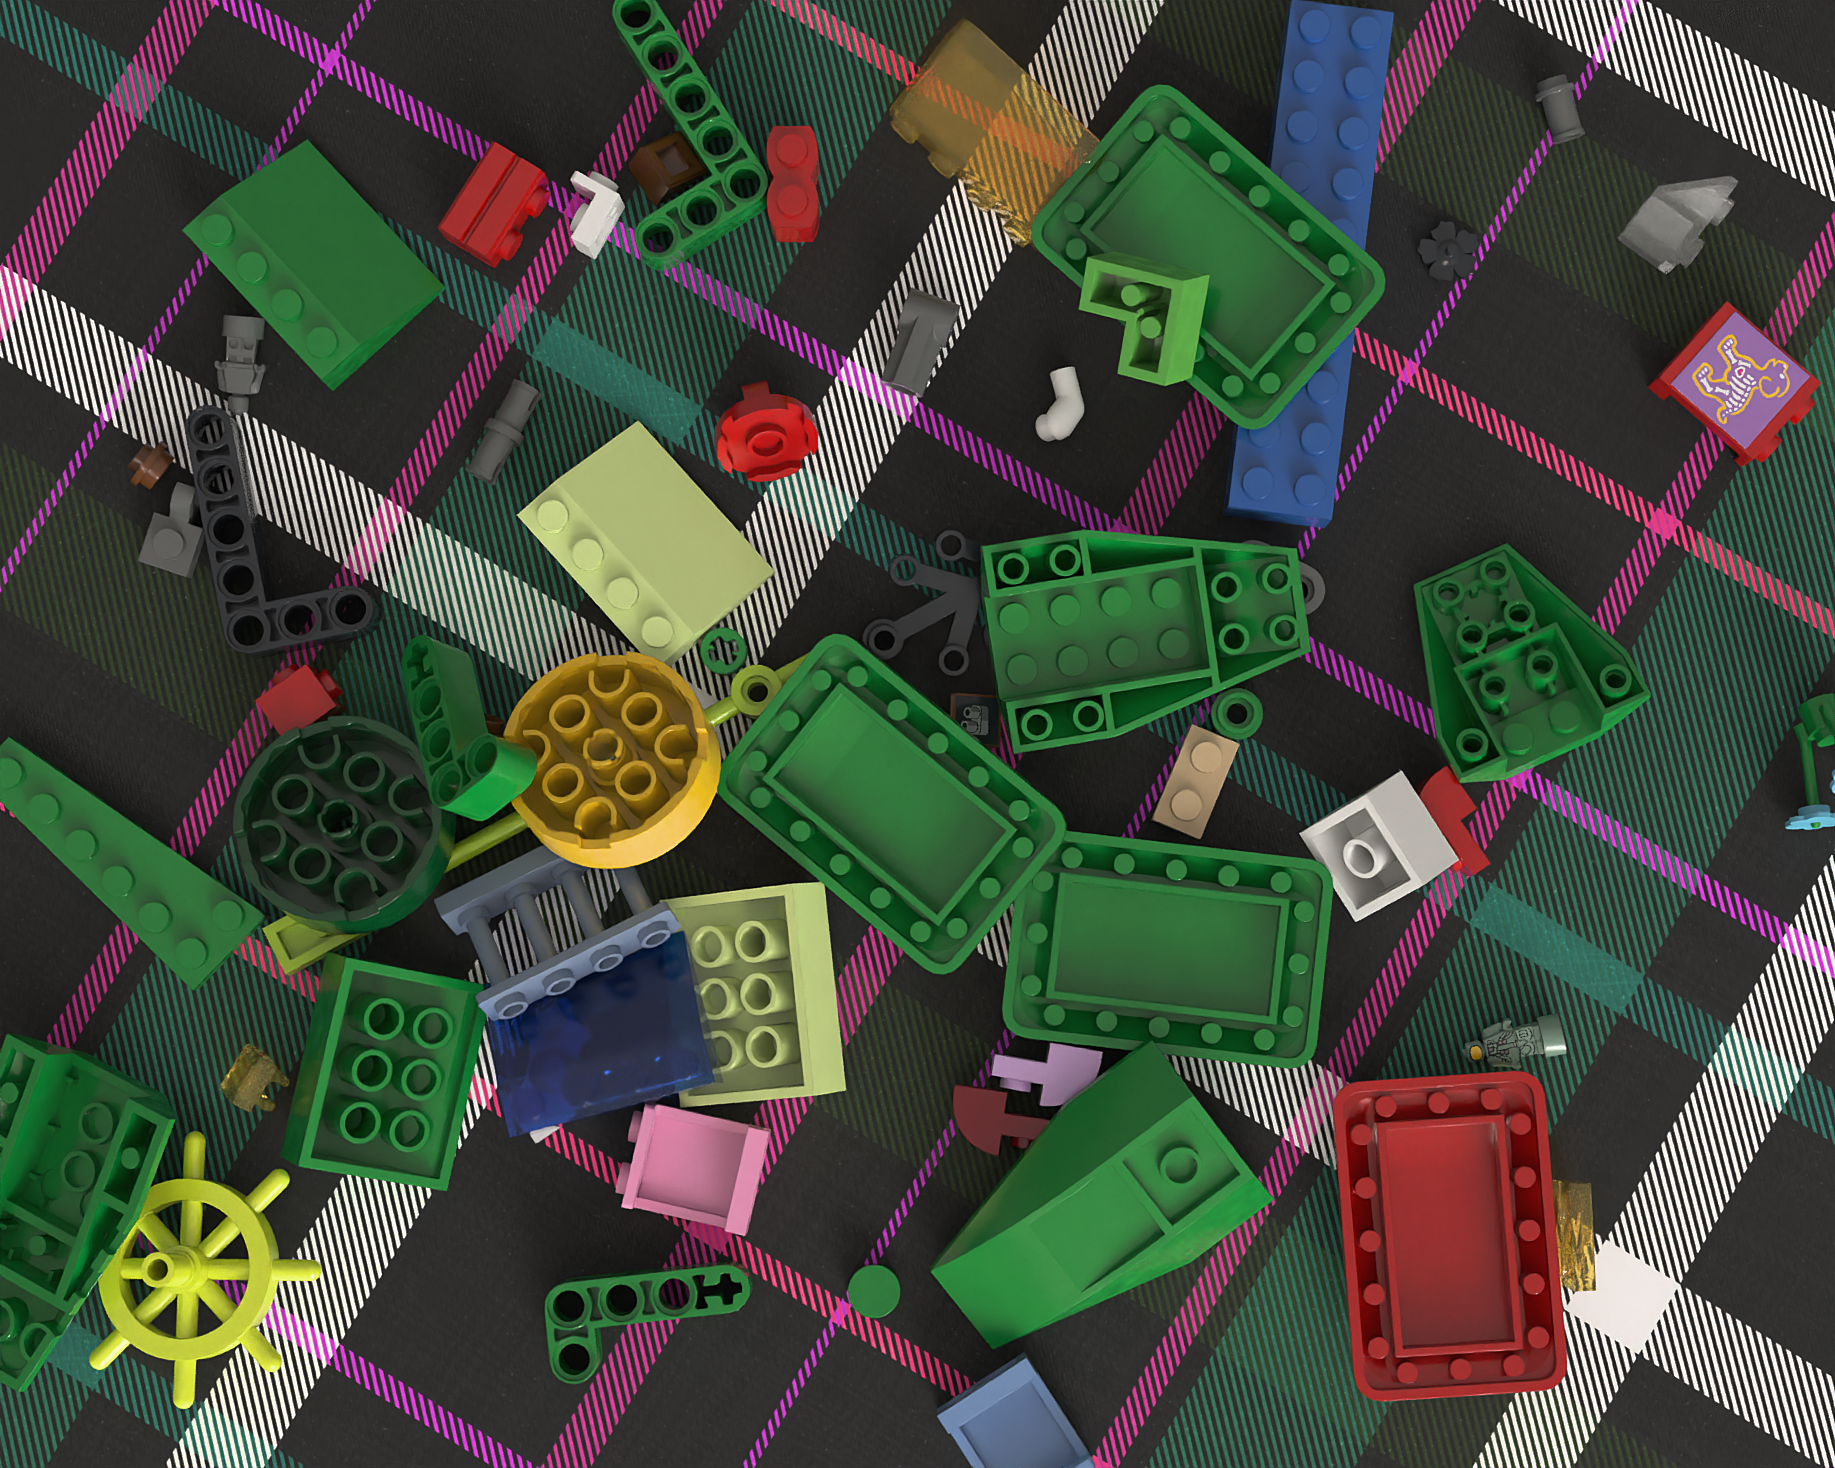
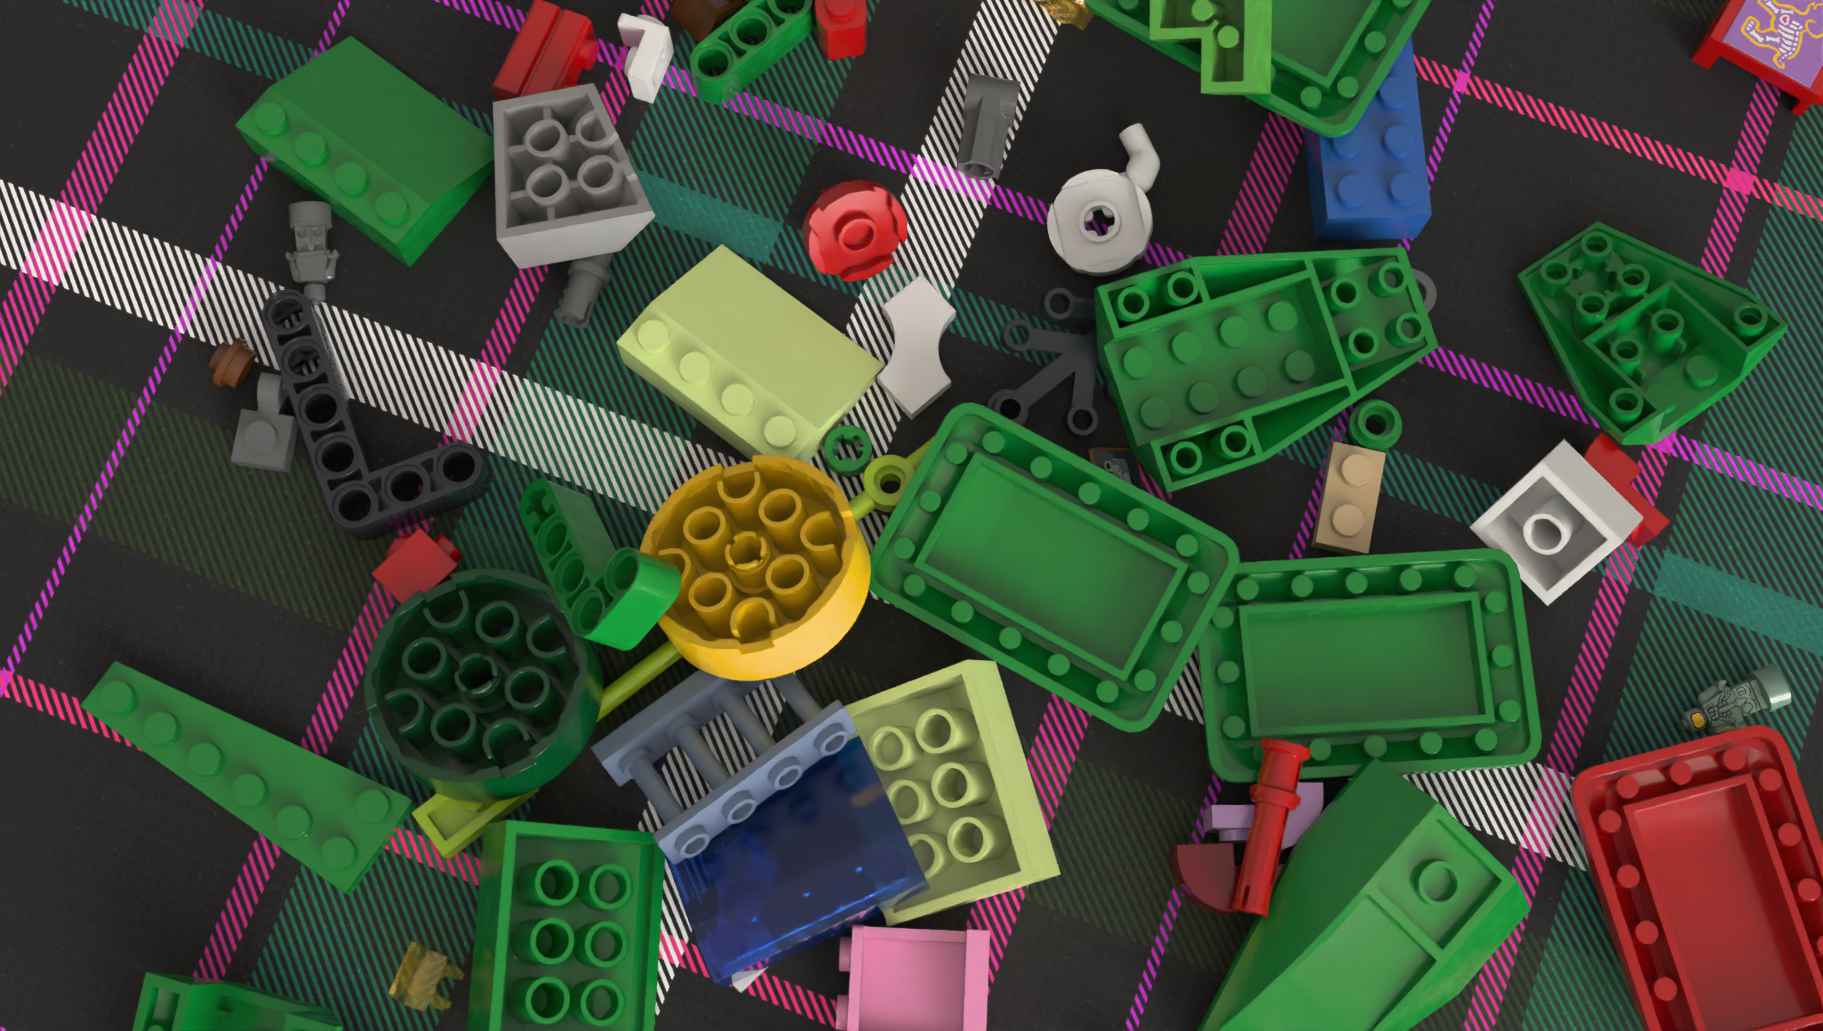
camera: 15 degrees left, 10 degrees down
(490, 338) = (563, 179): none -> light grey wedge
(802, 581) = (914, 370): none -> white tile
(987, 446) = (1074, 208): none -> white plate
(1050, 1061) = (1273, 799): none -> red pin

